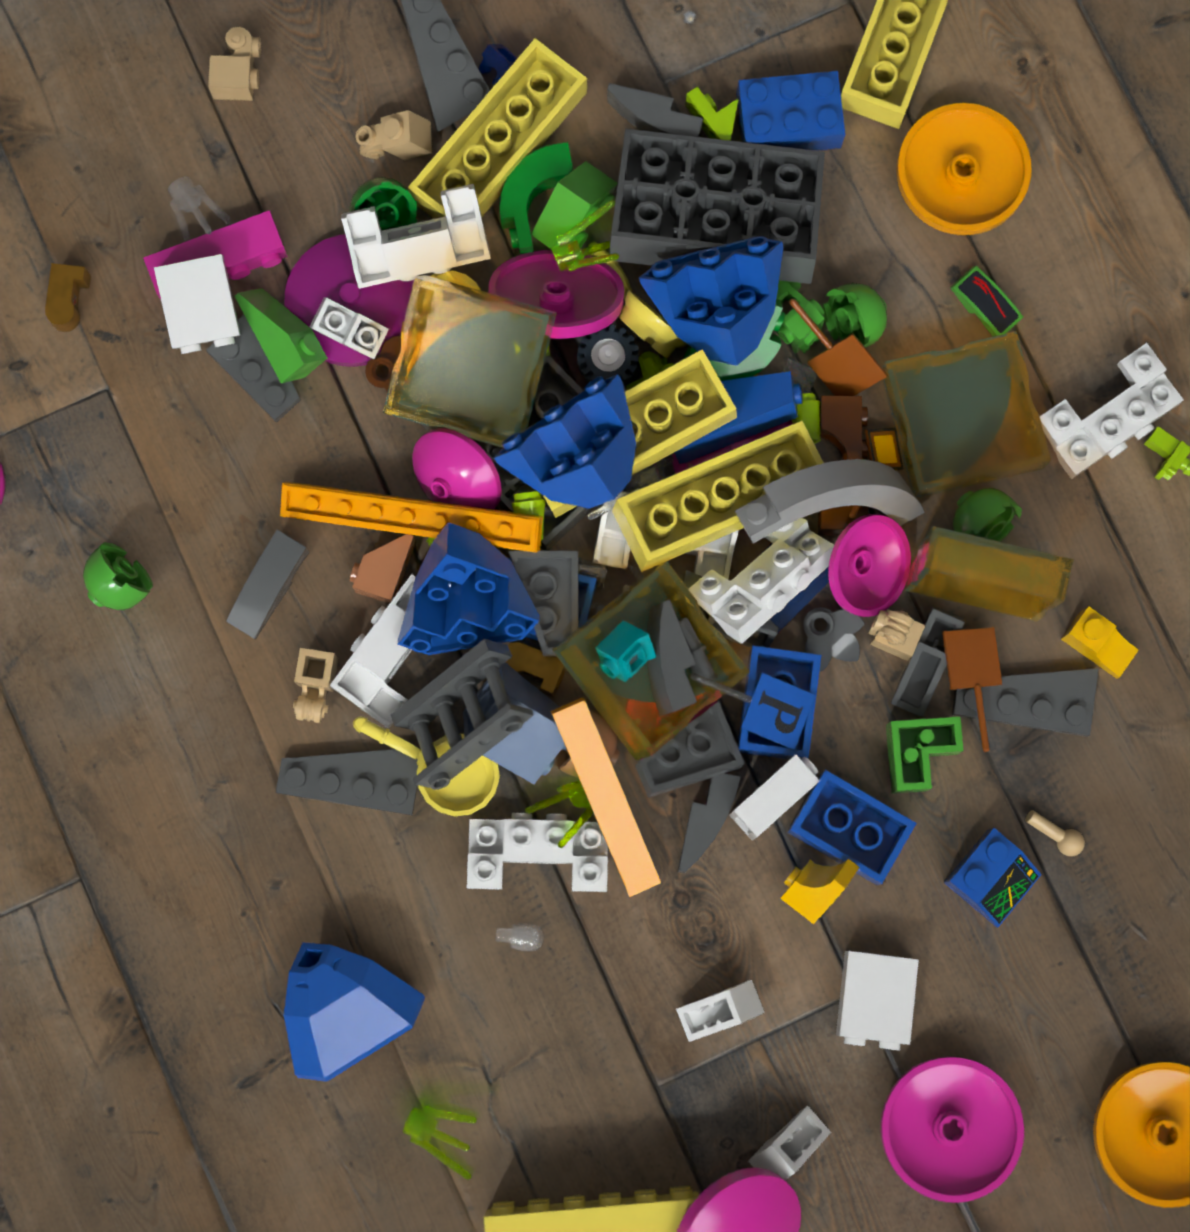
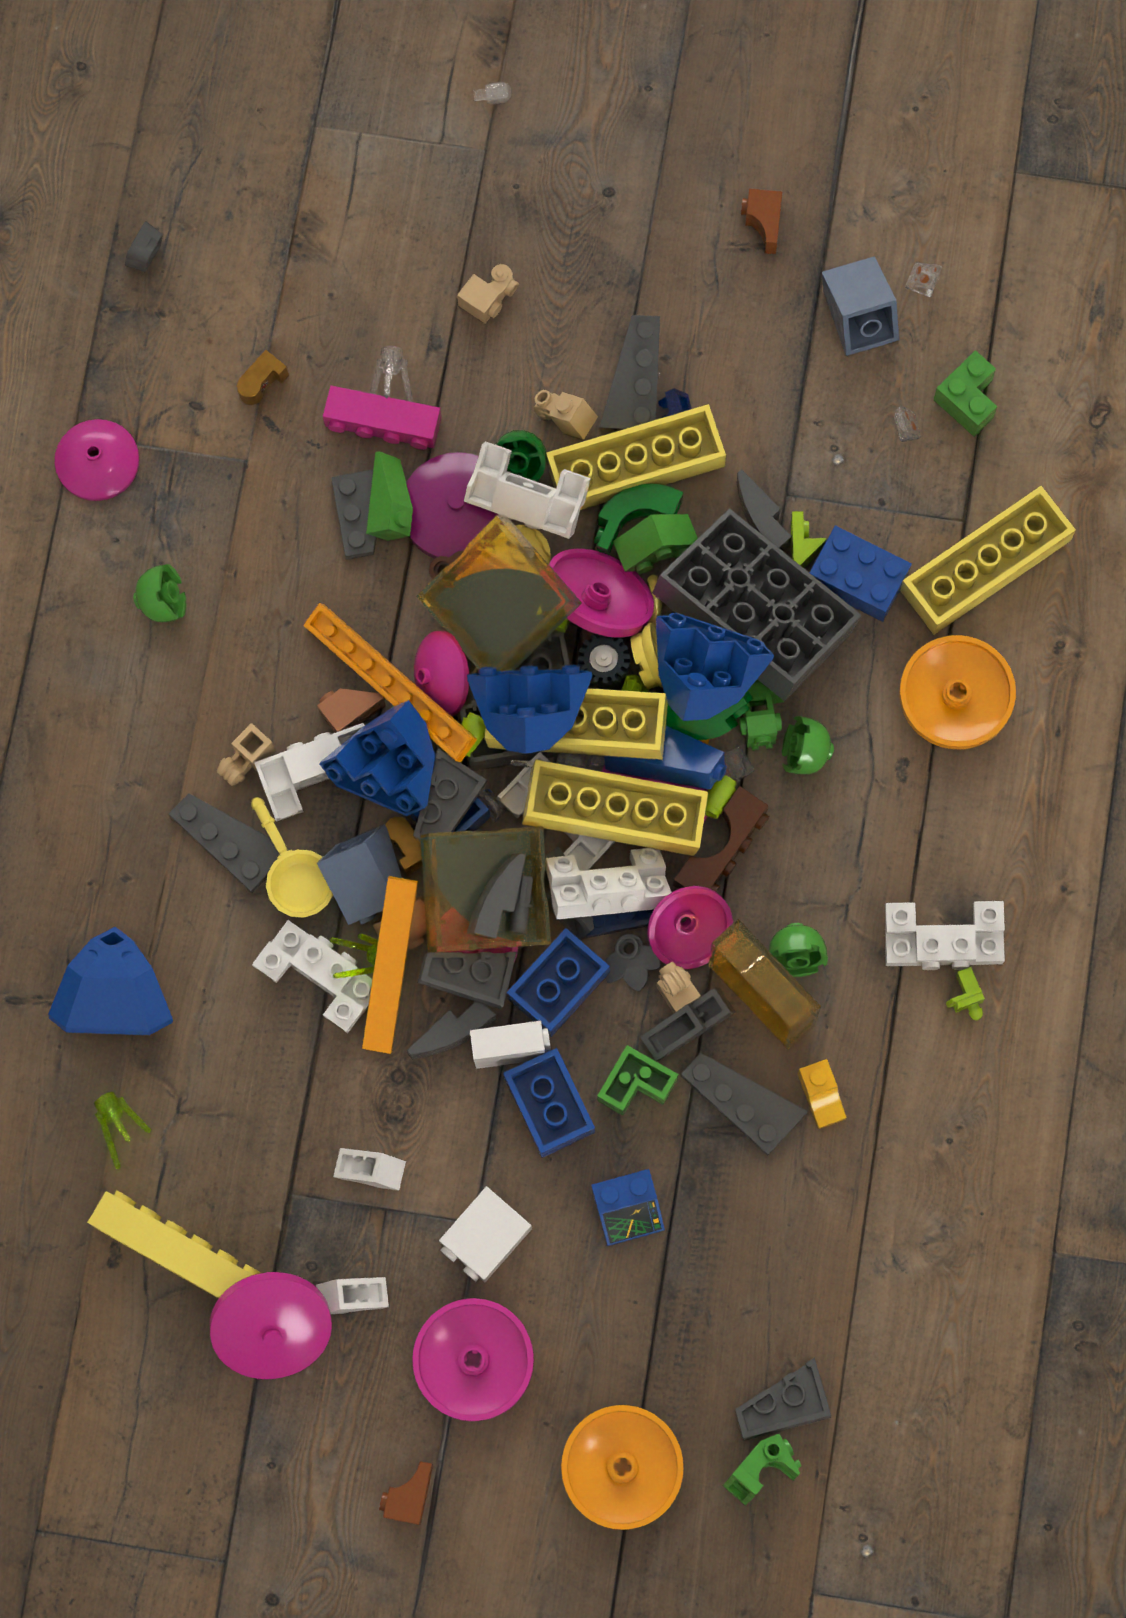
camera: 40 degrees right, 5 degrees down
(197, 303) = (345, 441): white brick -> none
(267, 584) = (261, 666): dark grey slope -> none
(349, 328) = (438, 525): white slope -> none
(438, 698) = (316, 822): dark grey fence -> none
(521, 936) = (268, 1026): clear cylinder -> none
(570, 256) = (627, 572): clear neon green plant -> none
(625, 651) = (468, 869): teal window -> none
(774, 710) = (549, 981): blue piece -> none
(817, 887) = (495, 1127): yellow arch -> none
(829, 487) = (696, 850): light grey arch -> none
(844, 366) = (771, 774): dark orange piece -> none
(882, 448) = (758, 858): piece -> none
(965, 415) = (835, 868): clear yellow tile -> none
(973, 664) = (717, 1045): dark orange piece -> none
(987, 301) = (910, 798): slope -> none
(1069, 841) = (702, 1220): tan bar -> none

